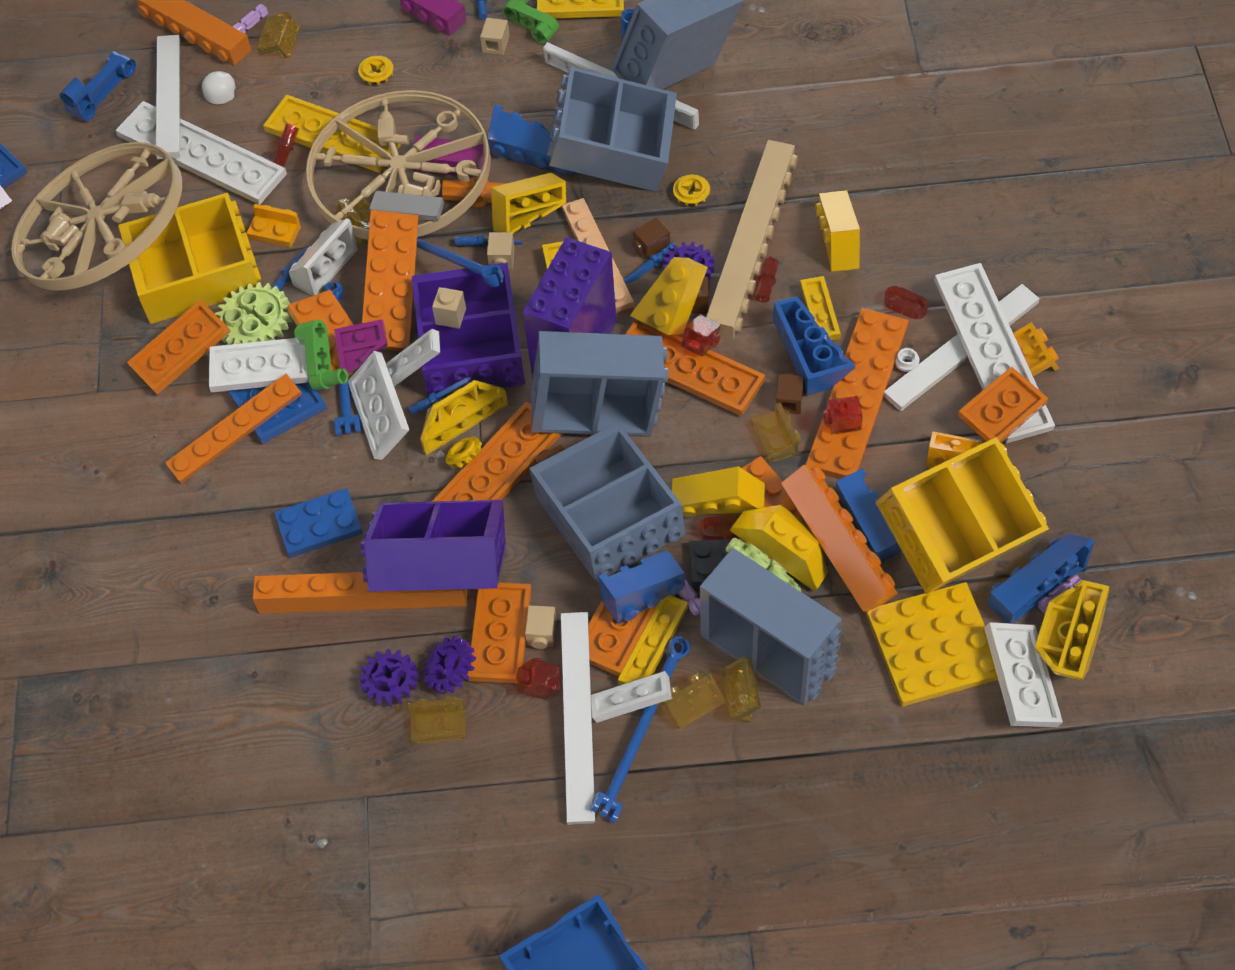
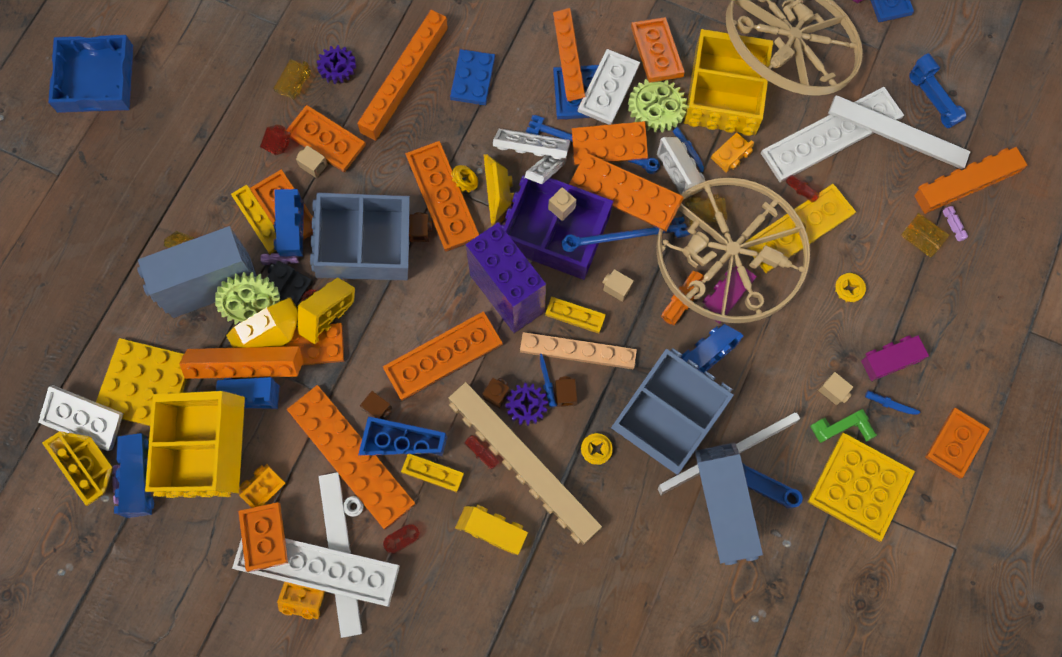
camera: 115 degrees right, 15 degrees up
(218, 87) = (893, 173): white hair -> none
(315, 338) = (599, 120): bright green beam -> none
(358, 342) = (581, 147): magenta wing -> none
(425, 206) = (681, 229): light grey tile -> none
(433, 398) = (521, 171): blue piece -> none
(434, 545) = (389, 114): dark purple container -> none
(449, 665) = (318, 97): dark purple gear -> none
(477, 241) = (638, 281): blue piece -> none
(526, 200) = (649, 321): yellow wedge -> none
(577, 718) = (240, 150): white tile -> none
(596, 381) = (438, 266): sand blue container -> none
(608, 801) = (243, 229): blue hinge -> none
(630, 697) = (227, 183): white plate -> none
(672, 296) = (492, 364): yellow wedge -> none
(693, 699) = (206, 217): clear yellow bracket -> none
(701, 335) = (453, 371): clear red brick -> none
(776, 434) = (353, 380): clear yellow bracket -> none
(843, 415) = (328, 424): clear red brick -> none

